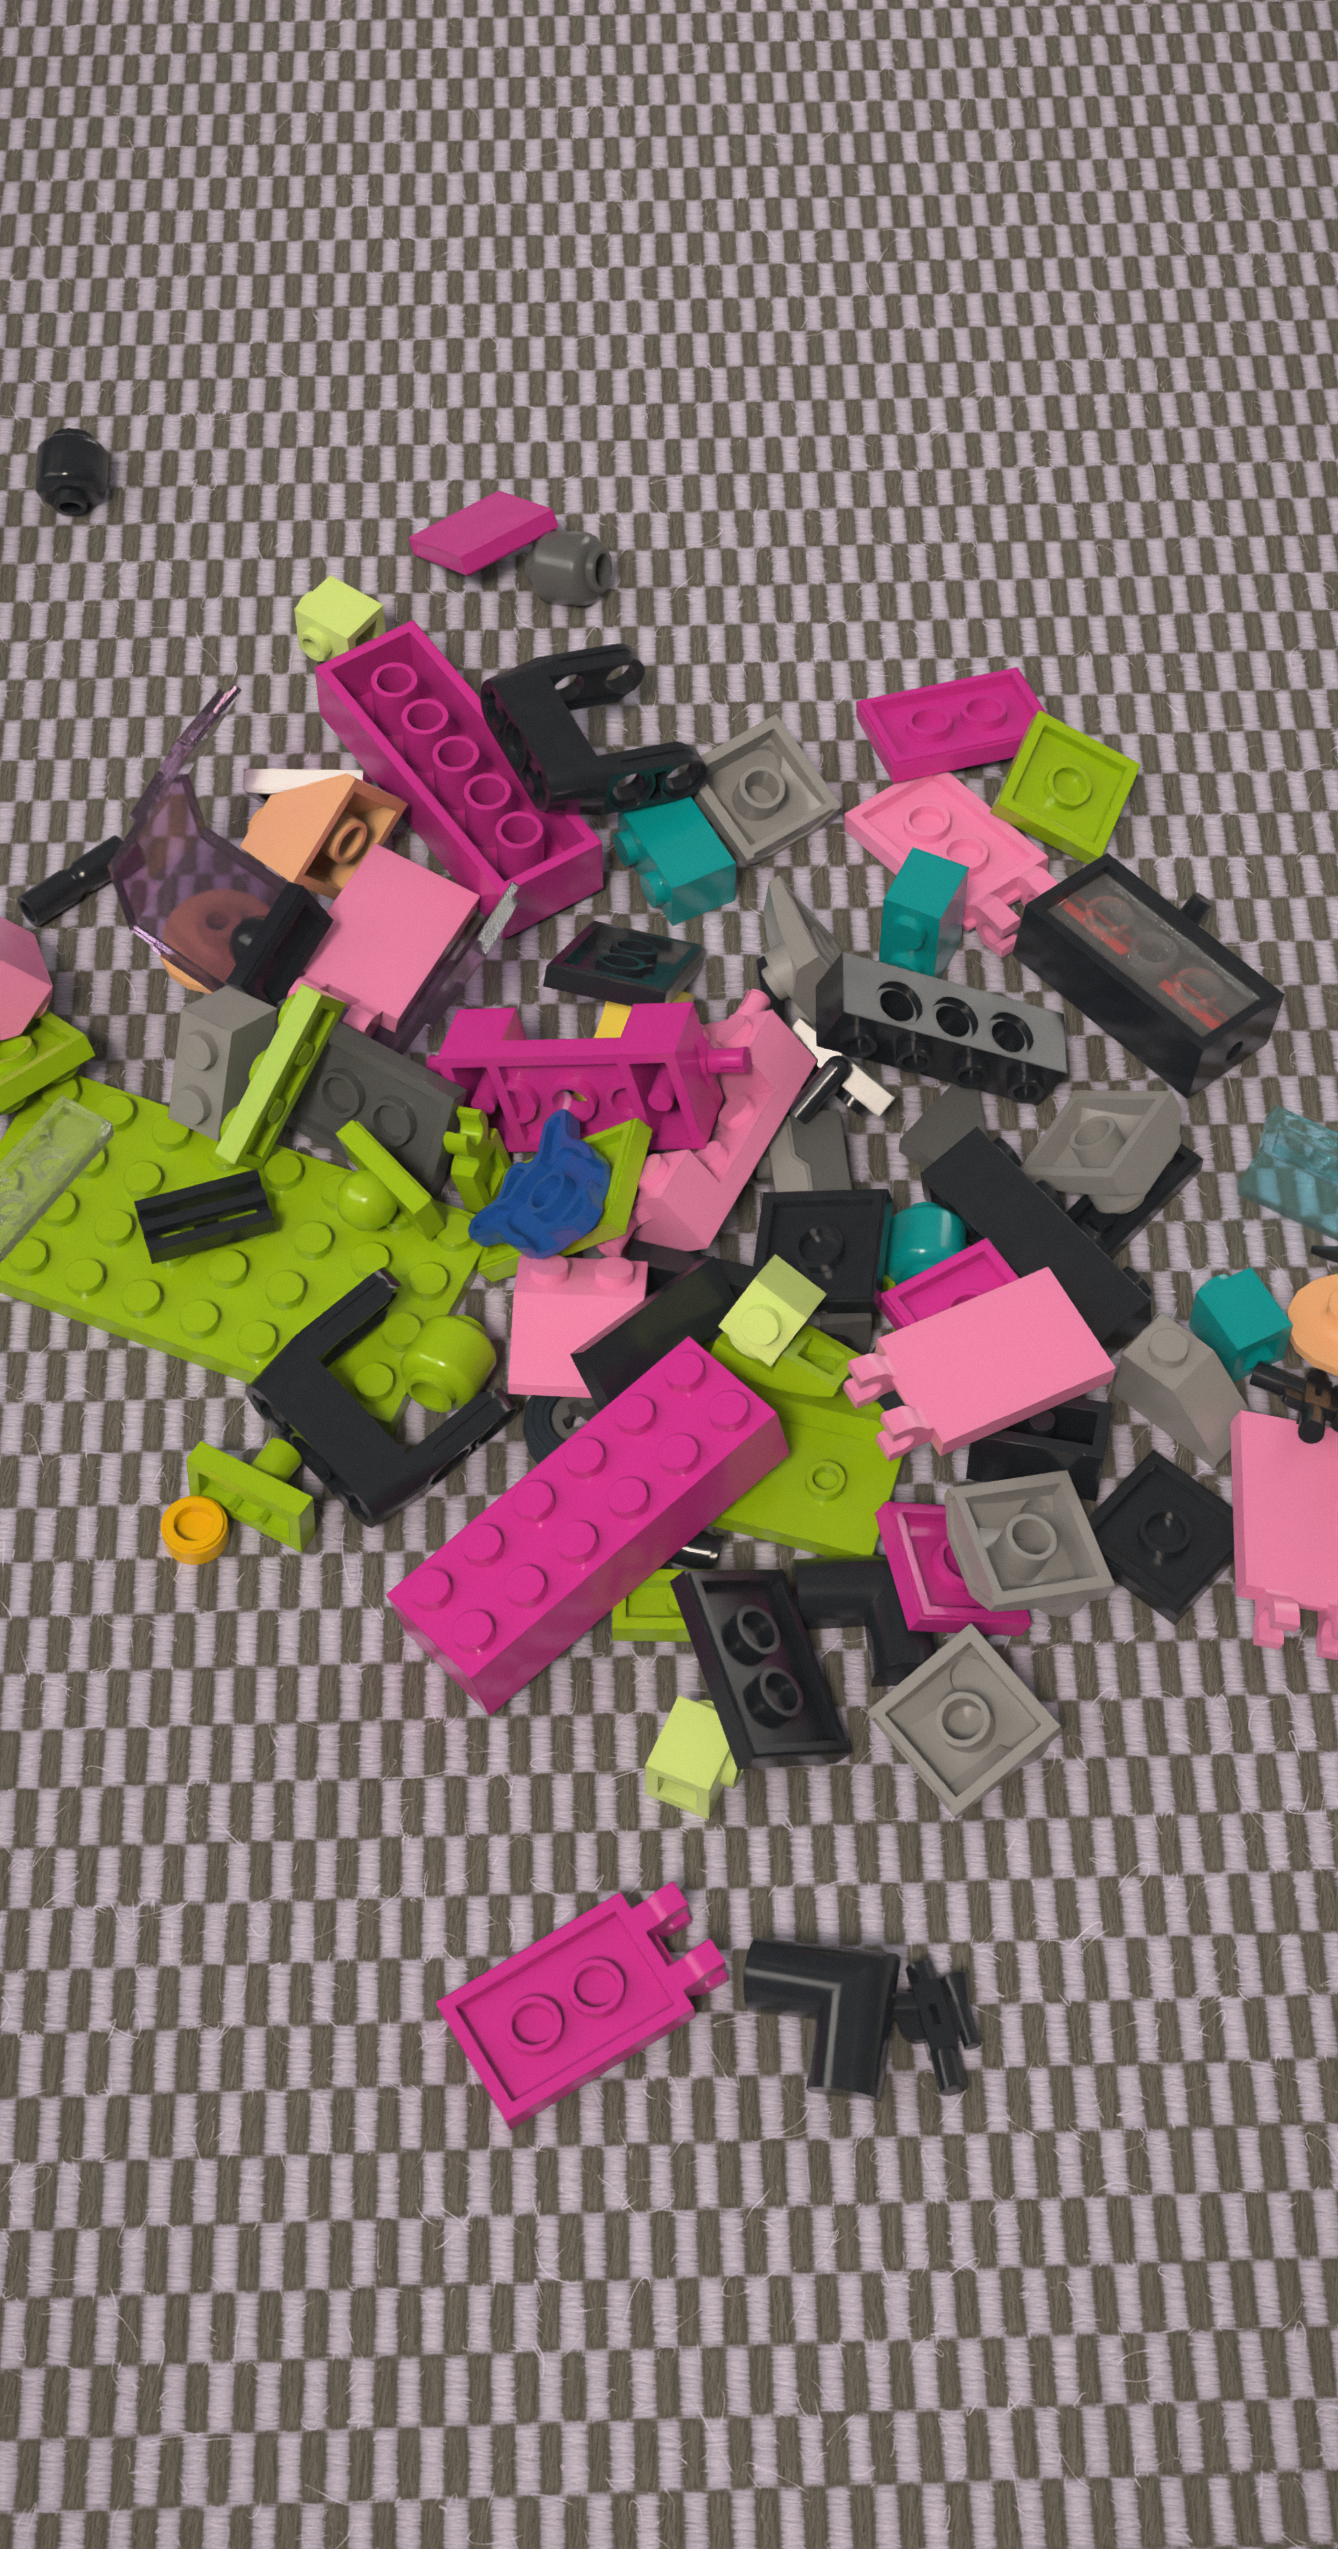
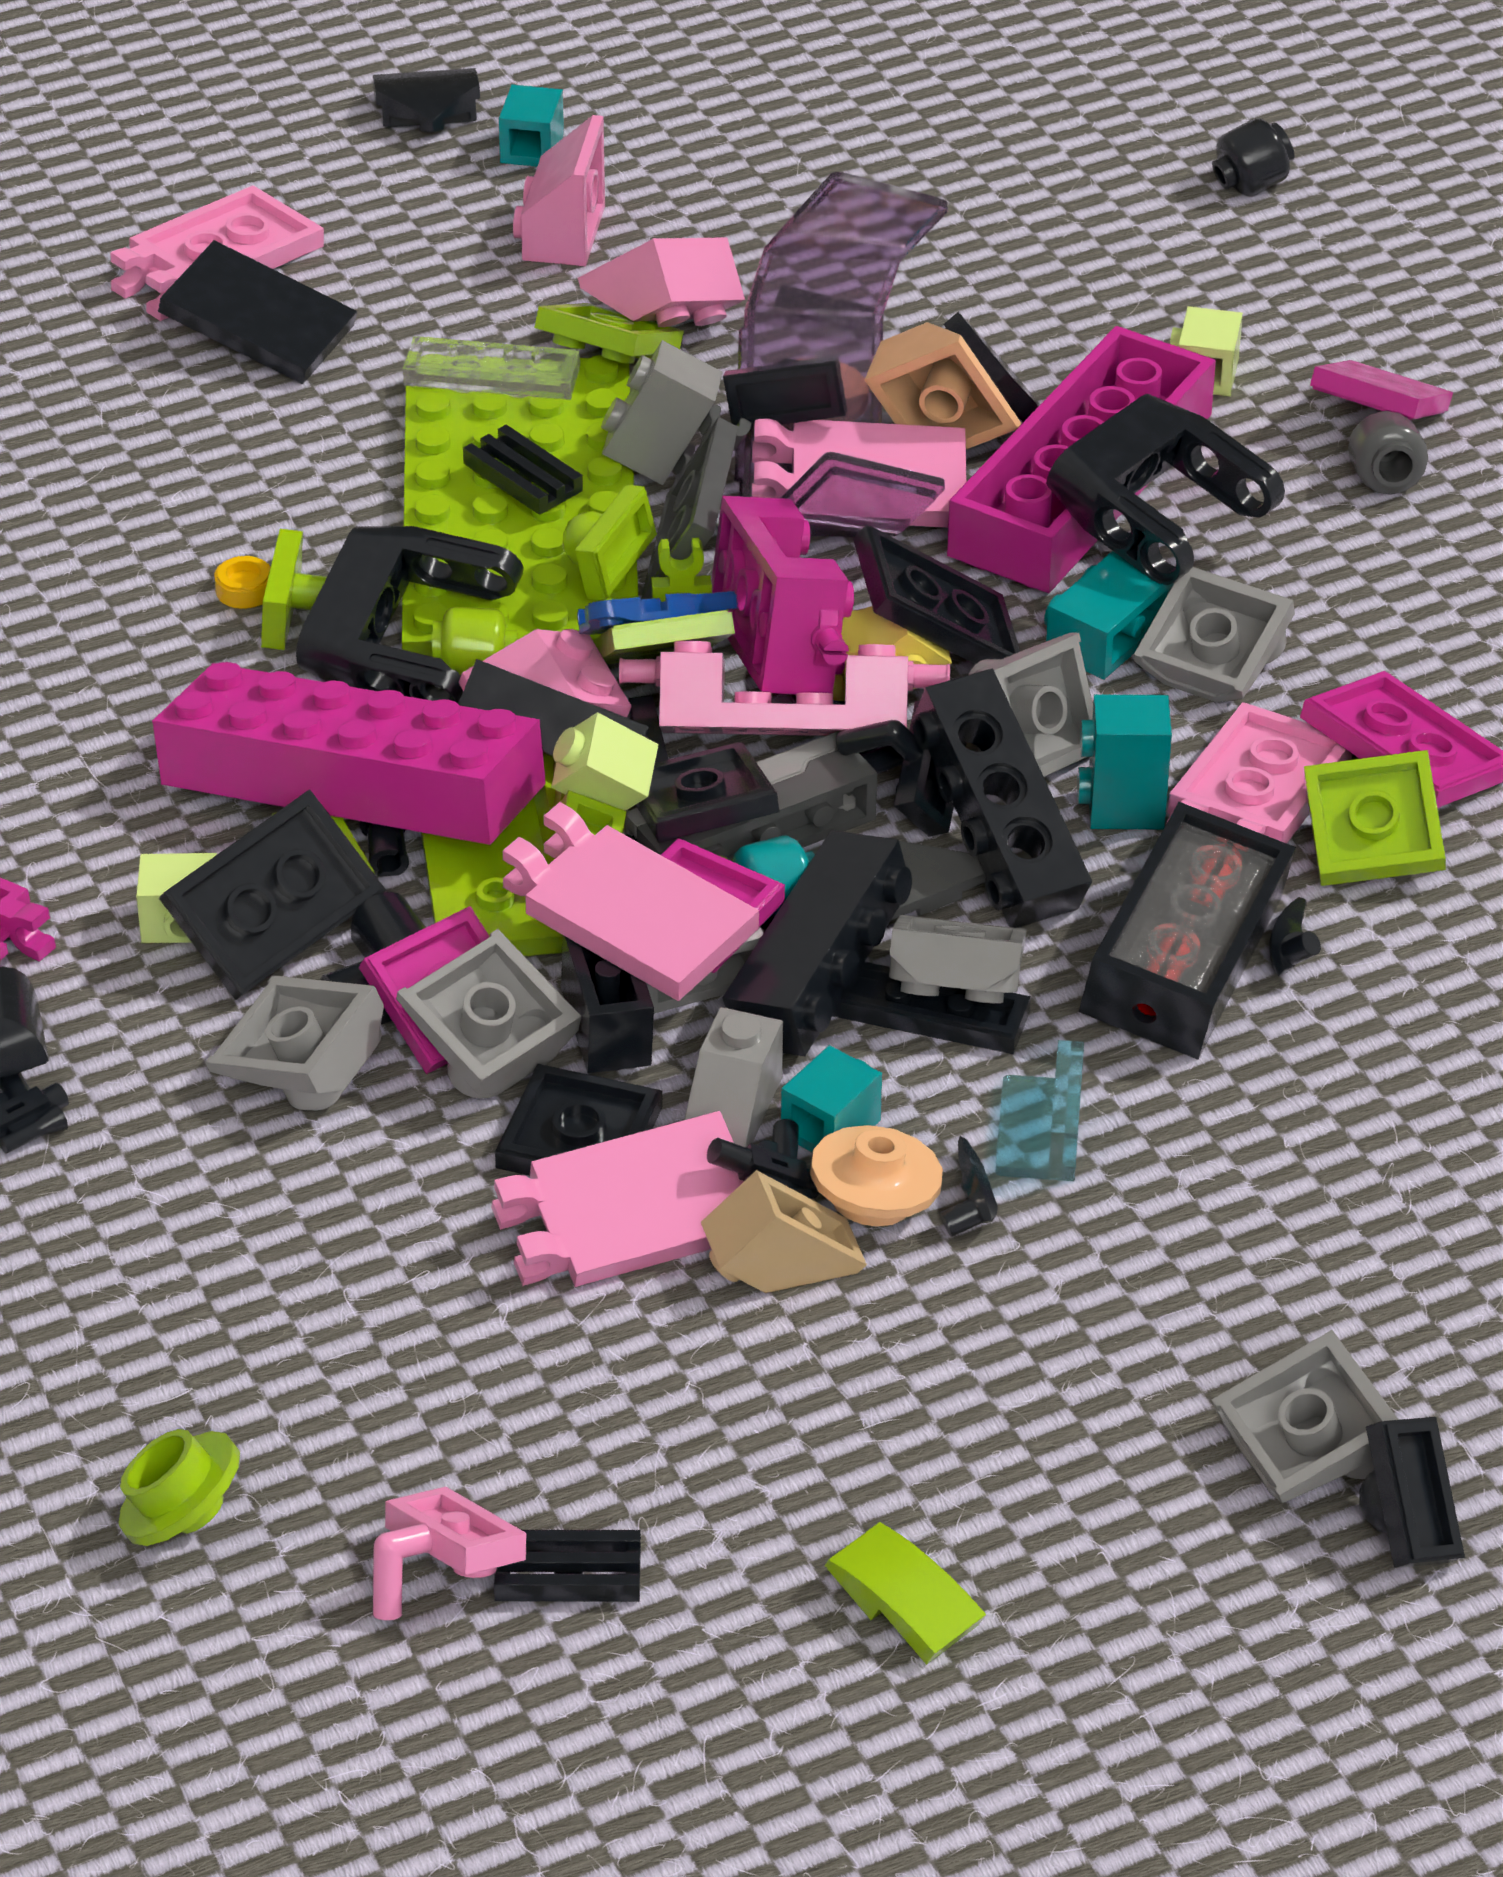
camera: 65 degrees right, 15 degrees down
(279, 1076) = (653, 430): lime plate -> none

